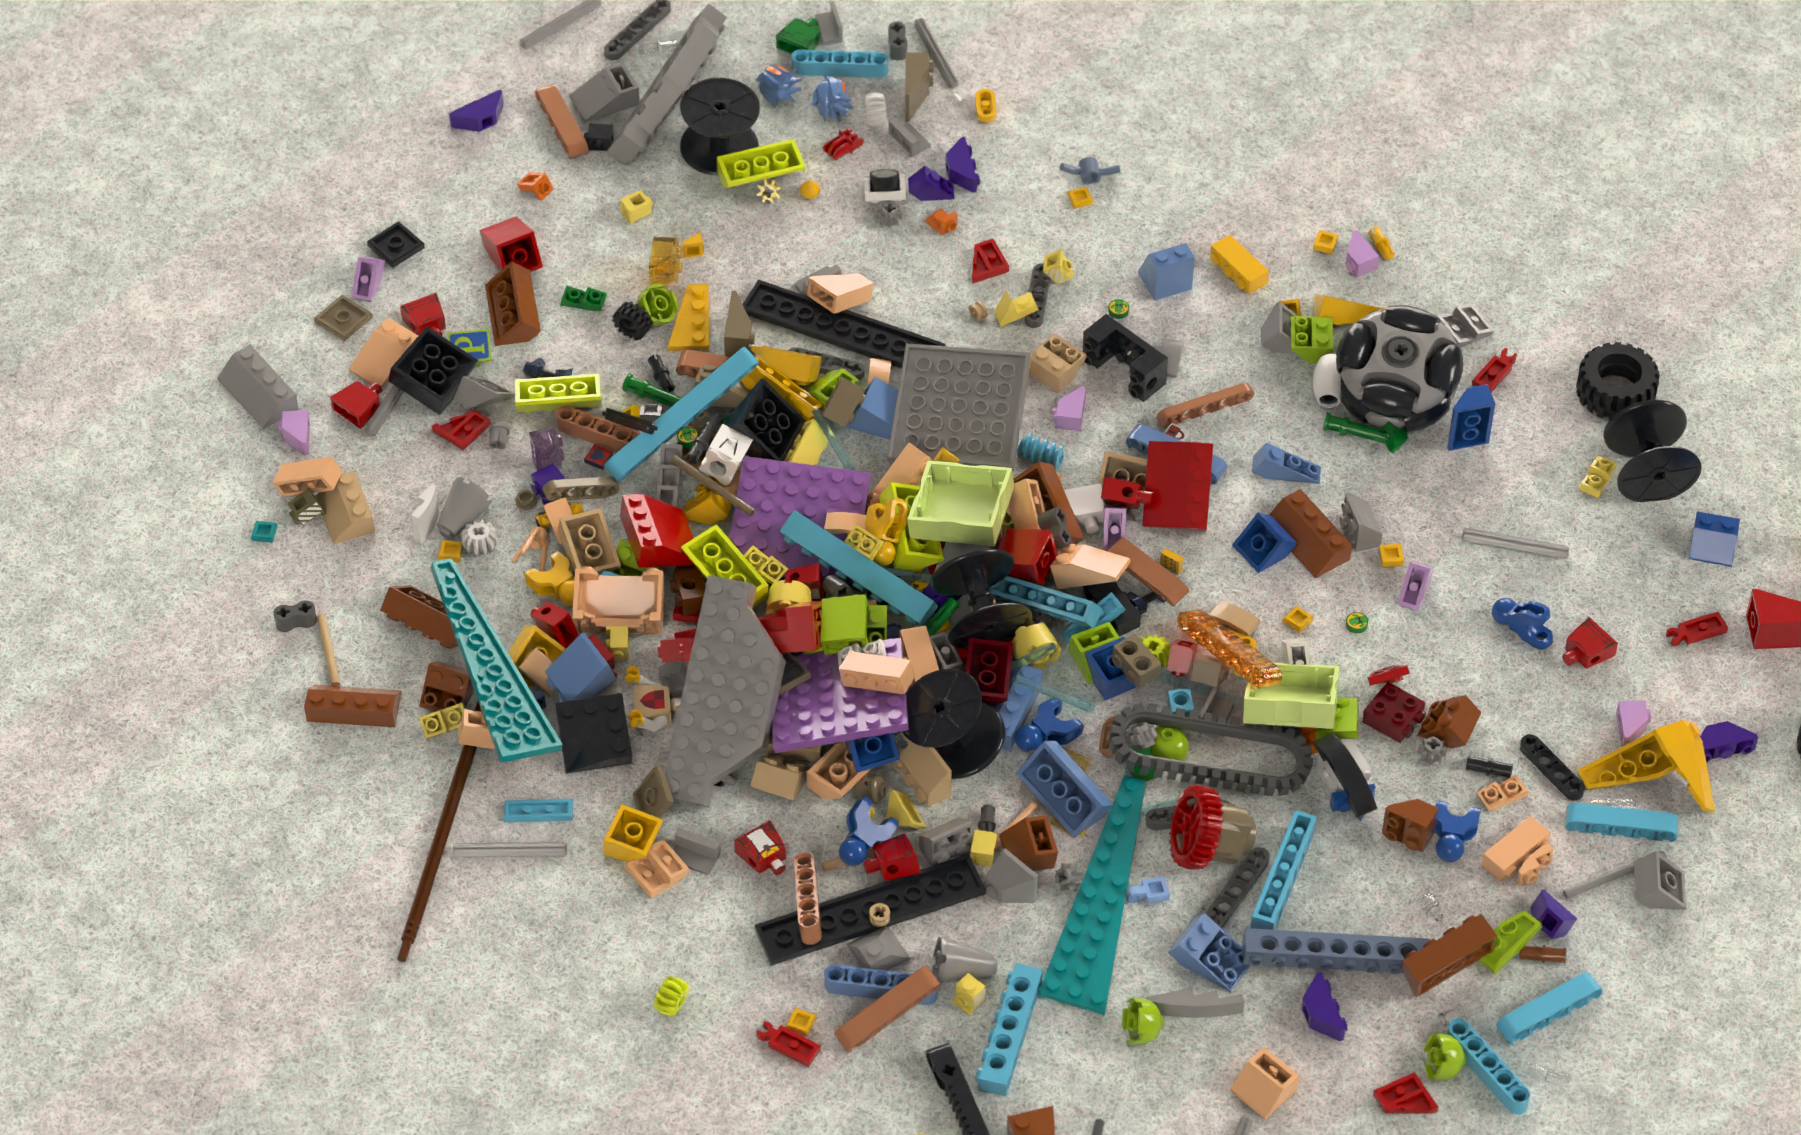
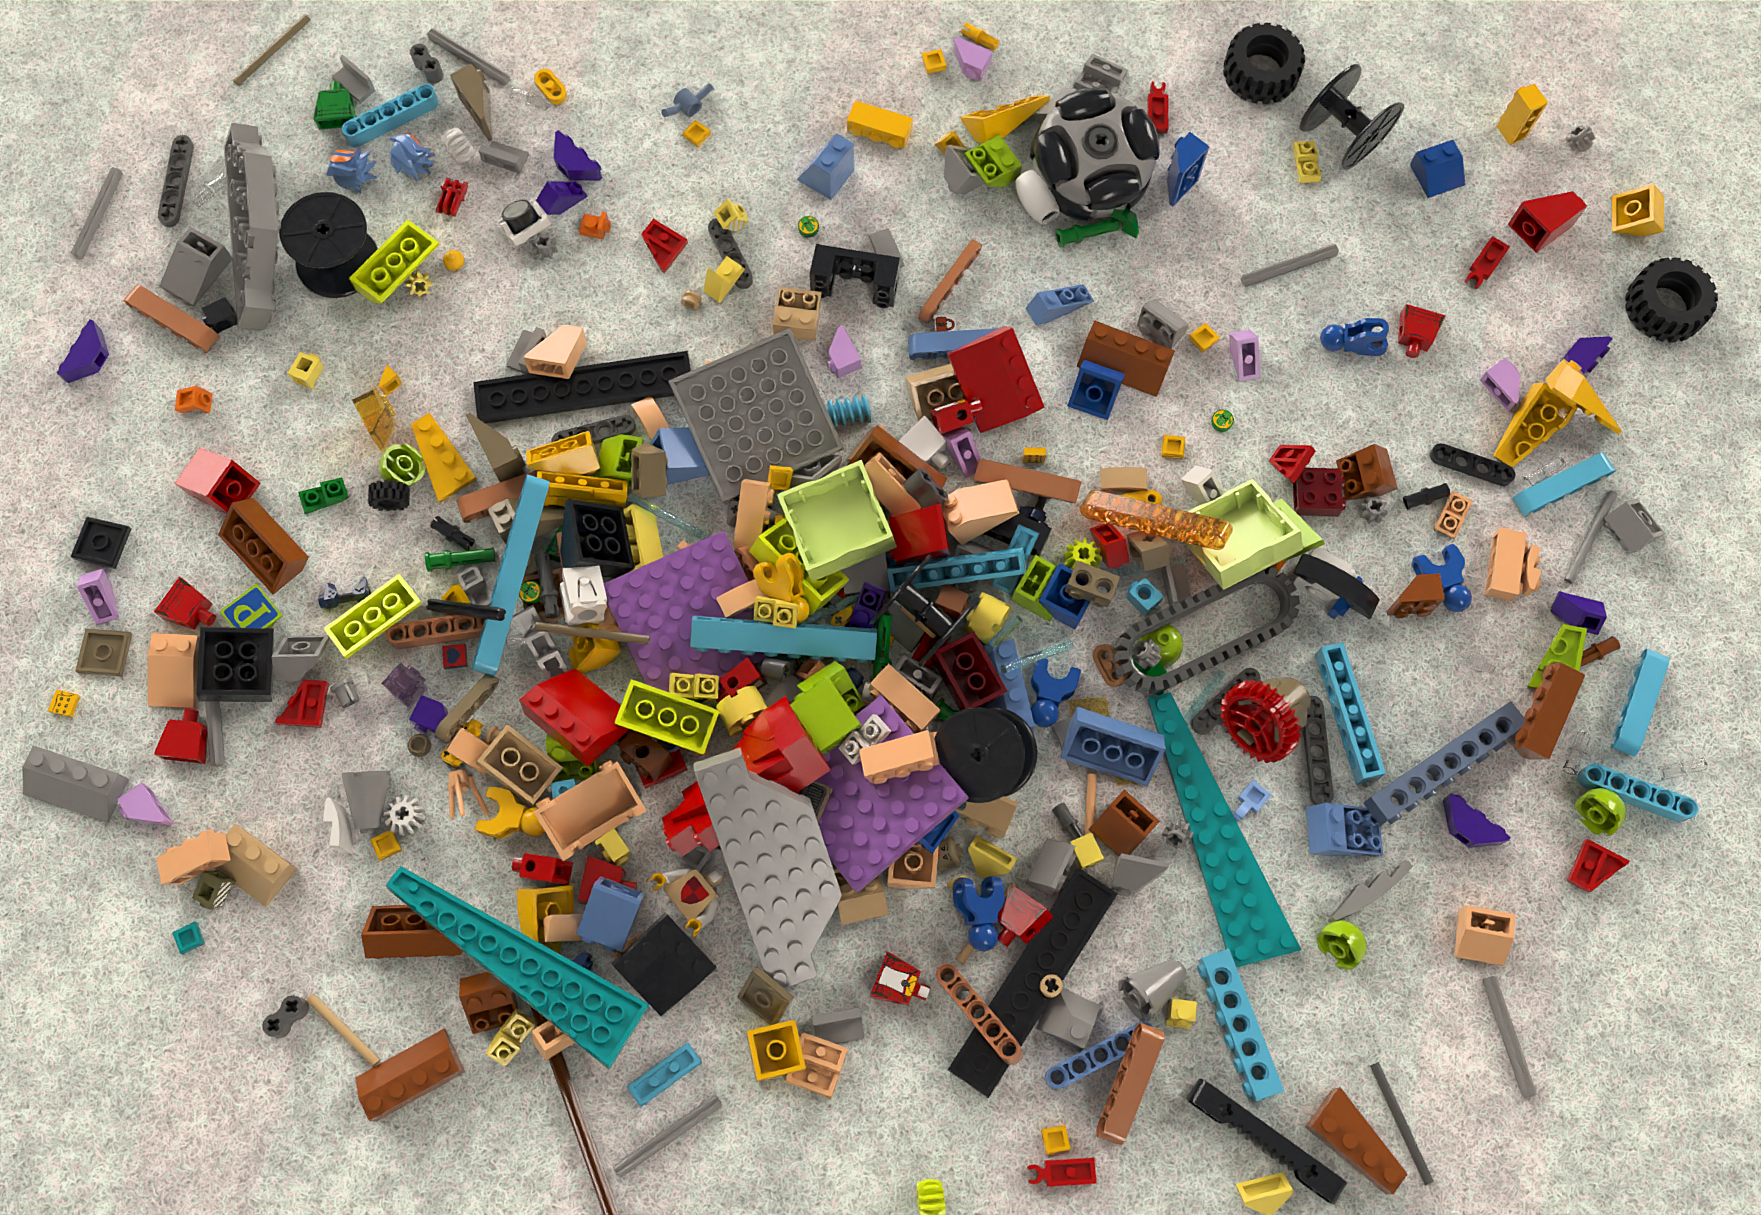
camera: 35 degrees left, 20 degrees up
(290, 335) = (64, 703): none -> yellow tile

